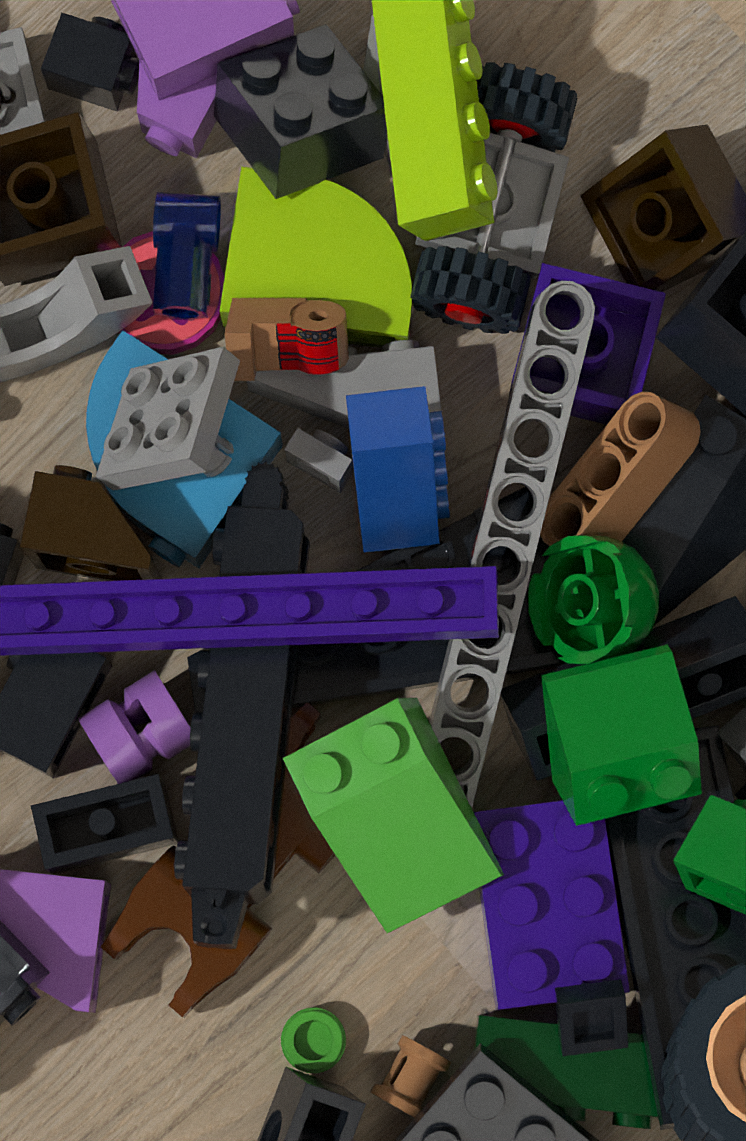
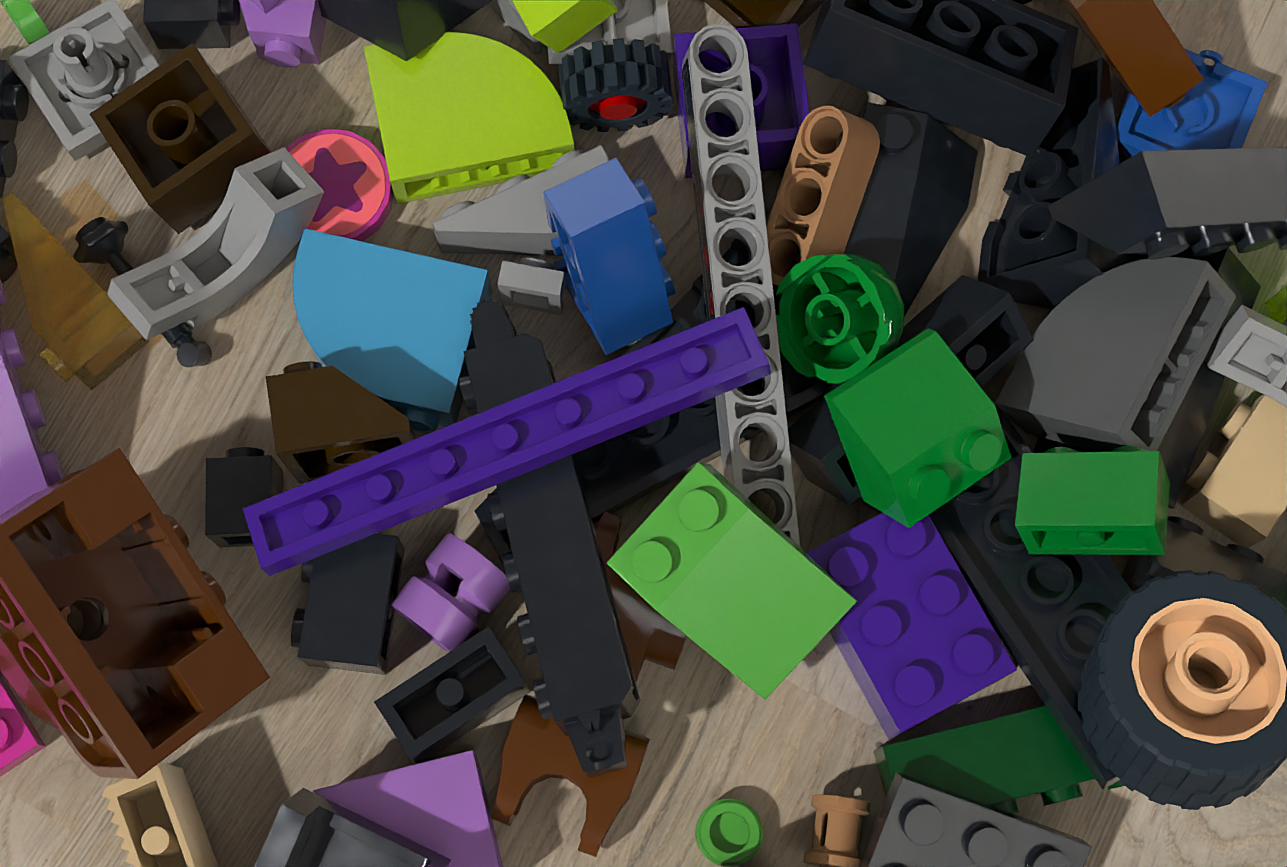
camera: 25 degrees left, 5 degrees down
(170, 421) = (381, 285): light grey plate -> none
(185, 237) = (335, 132): clear blue piece -> none
(286, 335) = (461, 179): medium nougat leg -> none
(591, 1017) = (994, 706): black plate -> none

